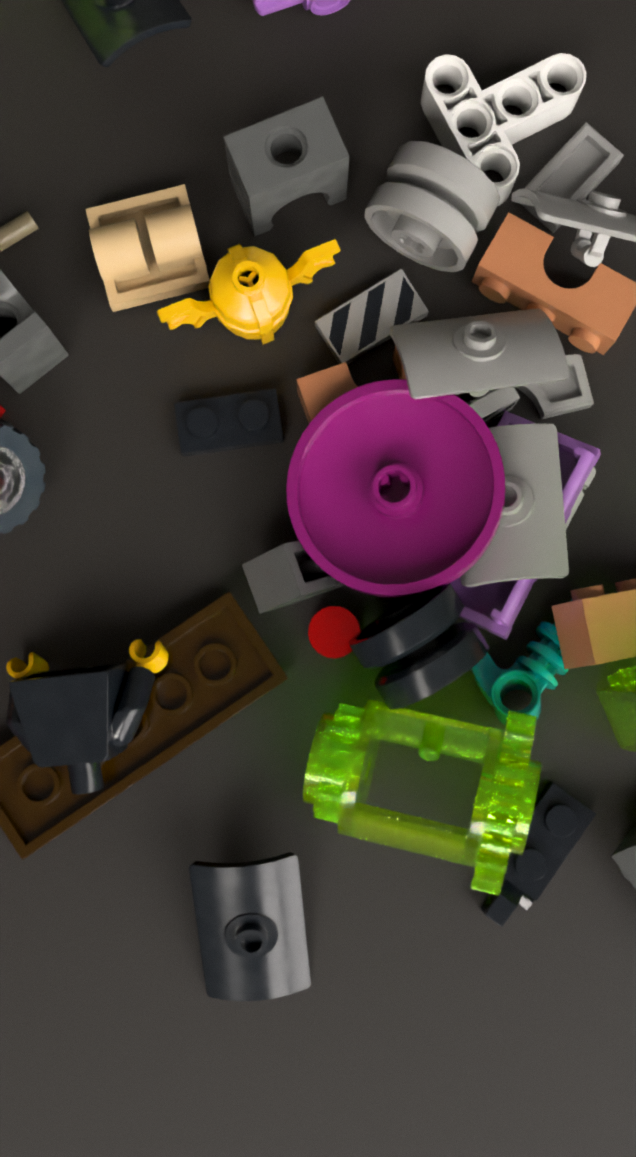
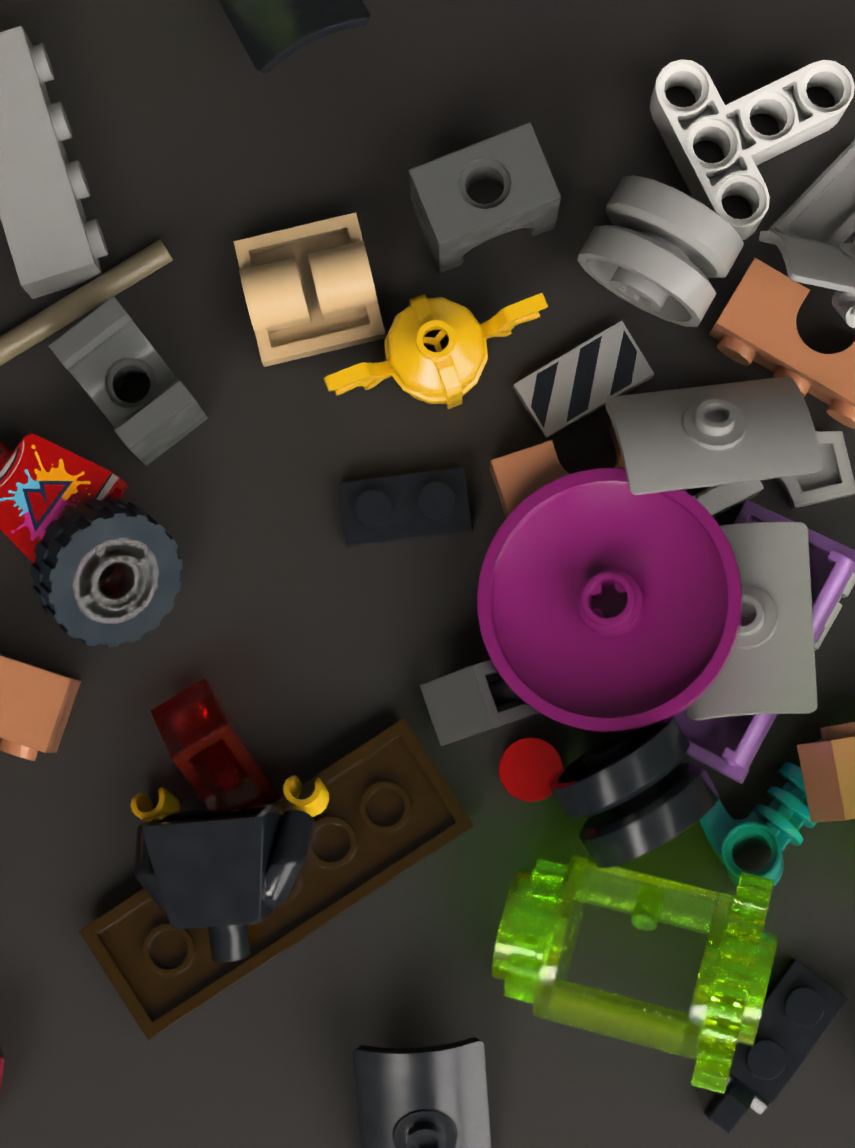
camera: 10 degrees right, 0 degrees up
(72, 620) = (212, 749): none -> clear red slope

